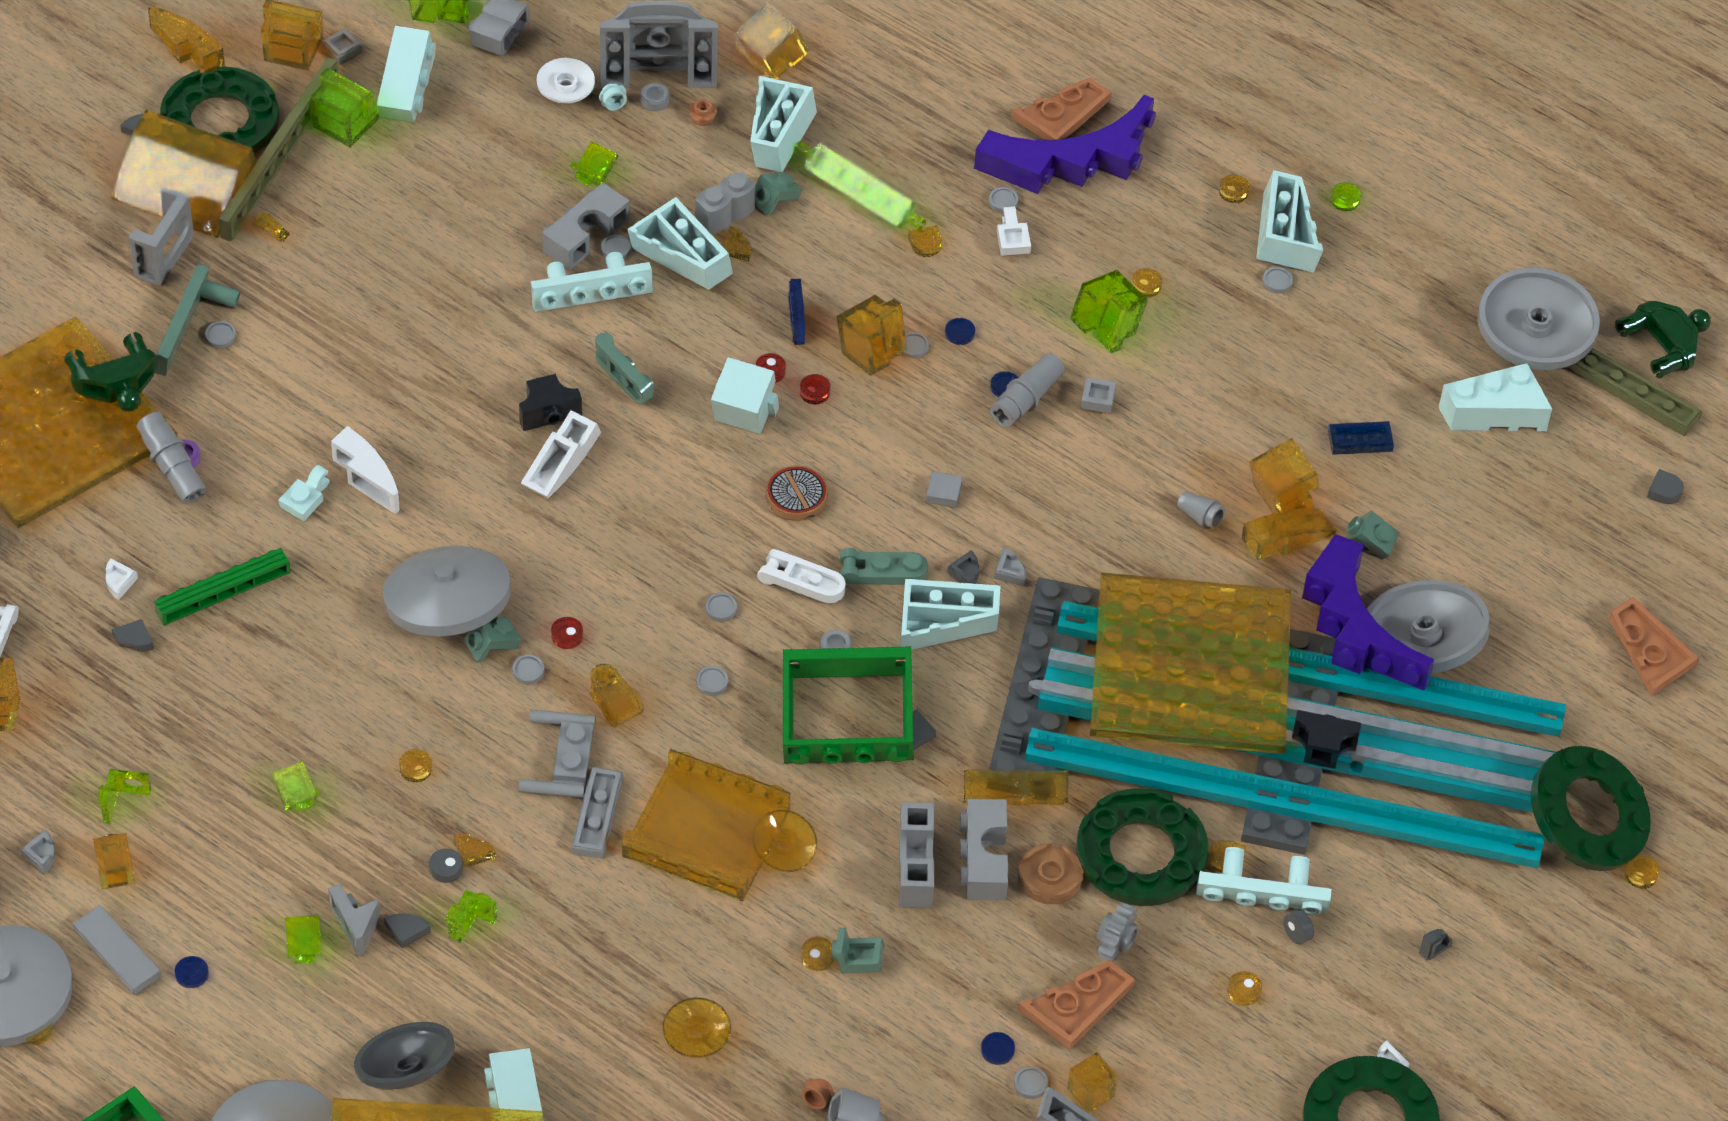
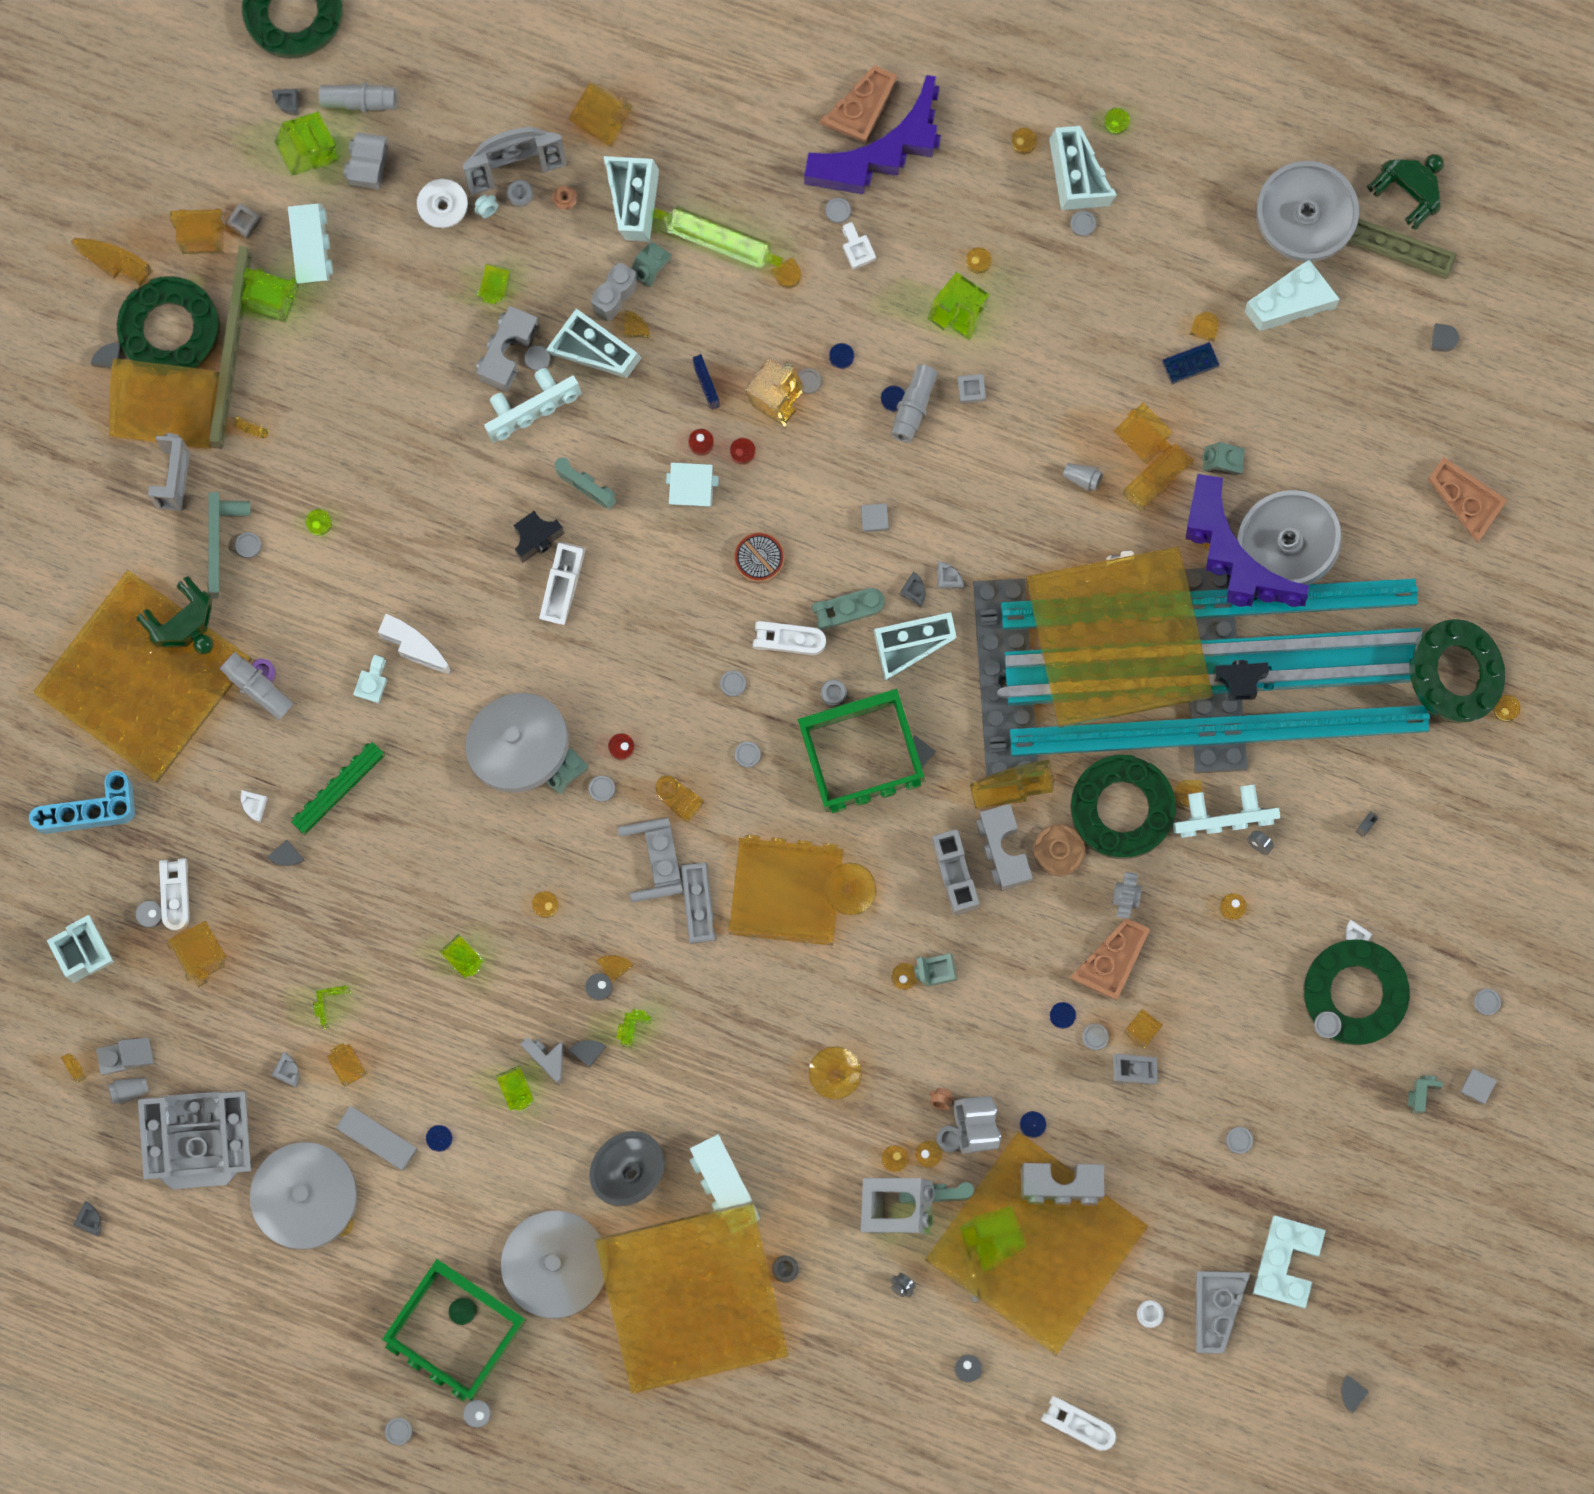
camera: 10 degrees left, 25 degrees up
(308, 333) = (318, 522): none -> clear neon green tile
(1388, 407) = (1205, 326): none -> clear yellow tile

